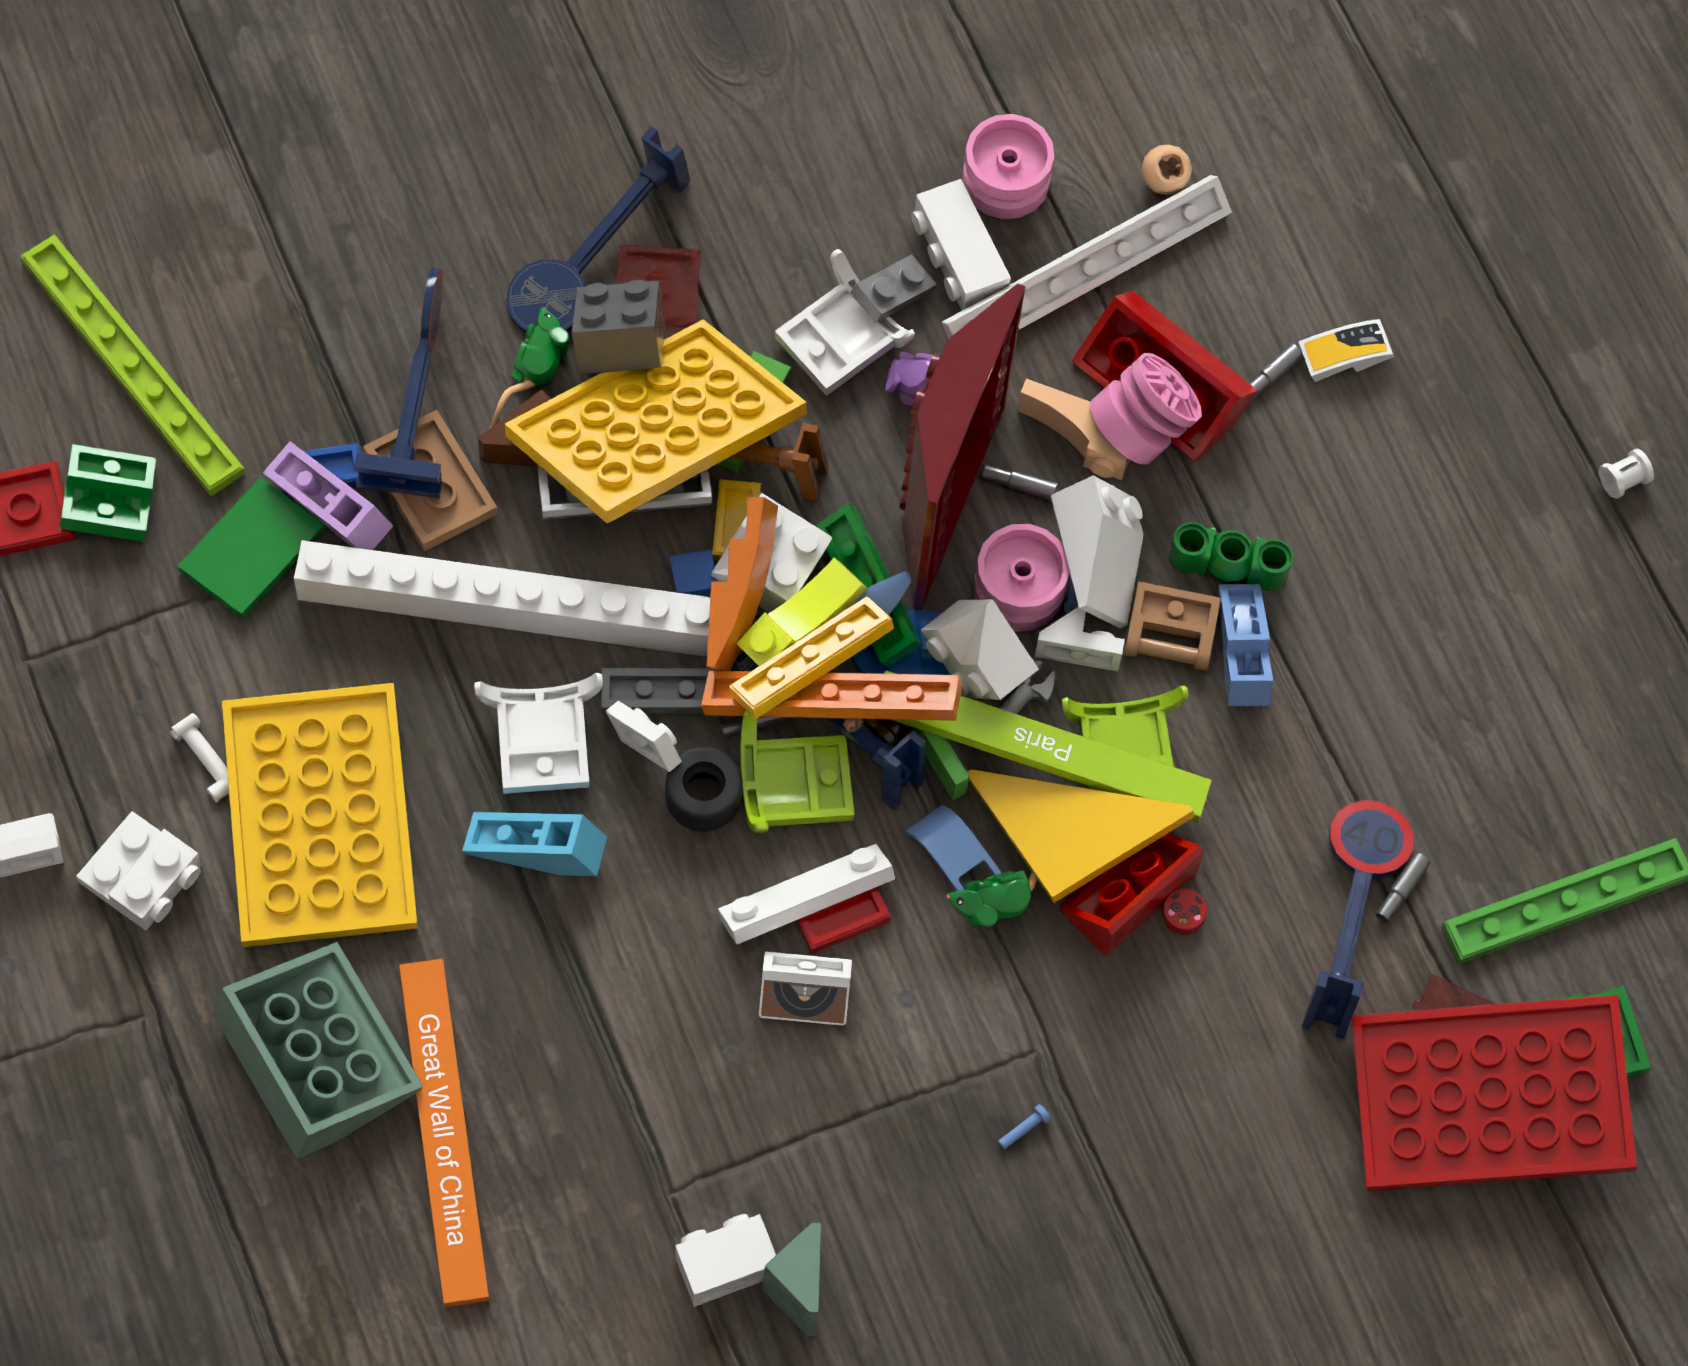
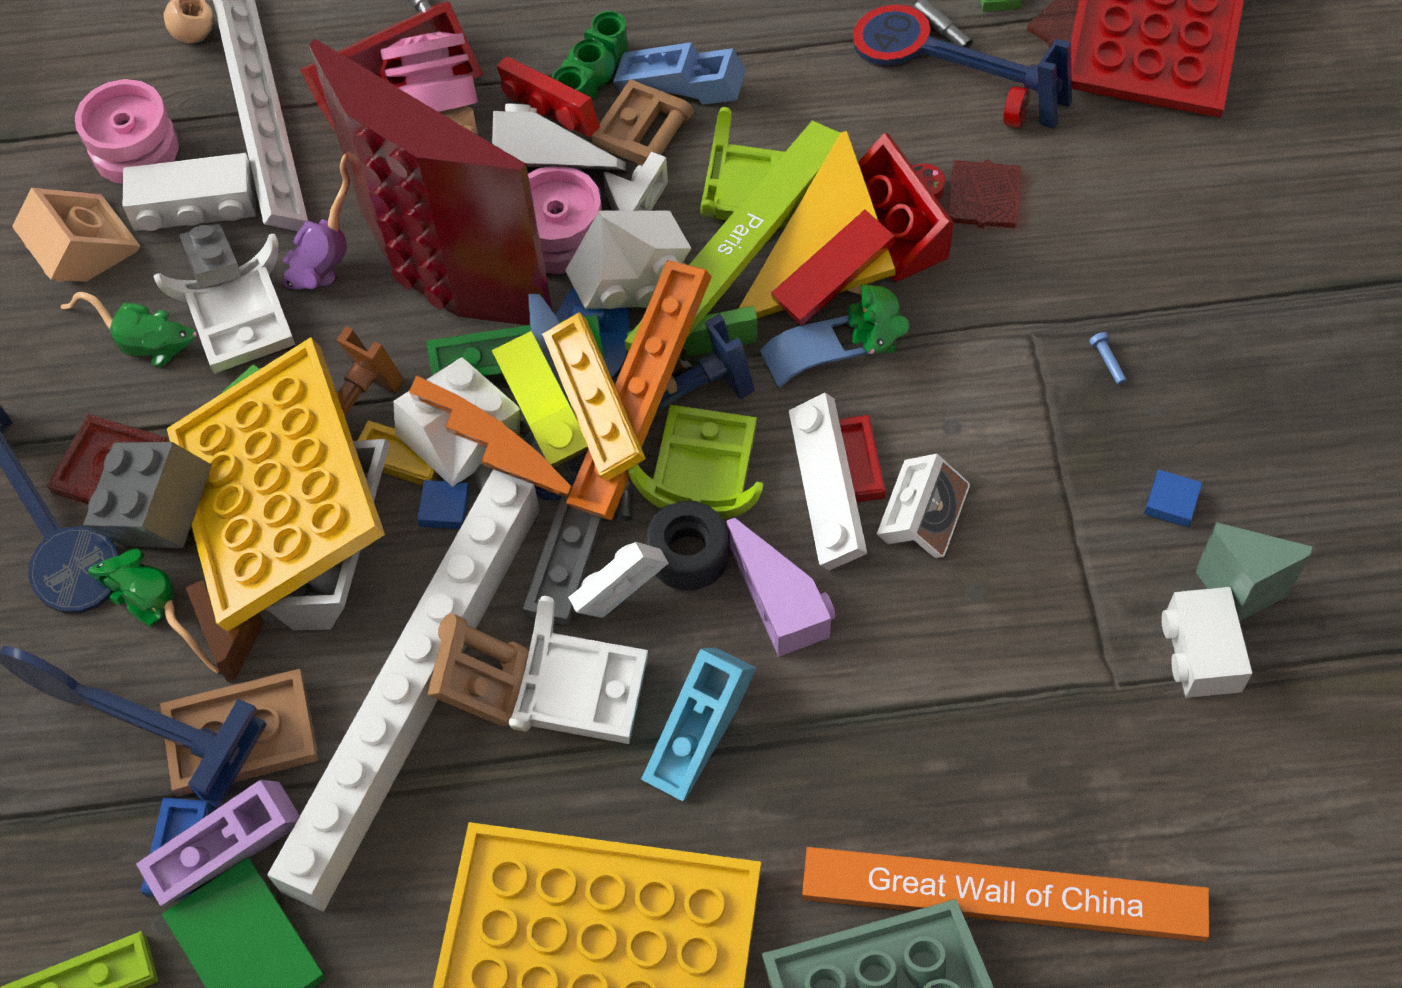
camera: 65 degrees left, 5 degrees down
(513, 650) = (472, 683): none -> medium nougat plate
(670, 885) = (781, 591): none -> lavender slope
(794, 261) = (139, 332): none -> green animal
(879, 1211) = (1173, 498): none -> blue tile
(885, 165) = (73, 233): none -> light nougat slope
(1034, 839) = (833, 267): none -> red tile
(1164, 524) = (548, 96): none -> red plate
(1193, 973) = (984, 194): none -> clear red piece
(1301, 978) = (1016, 107): none -> red tile

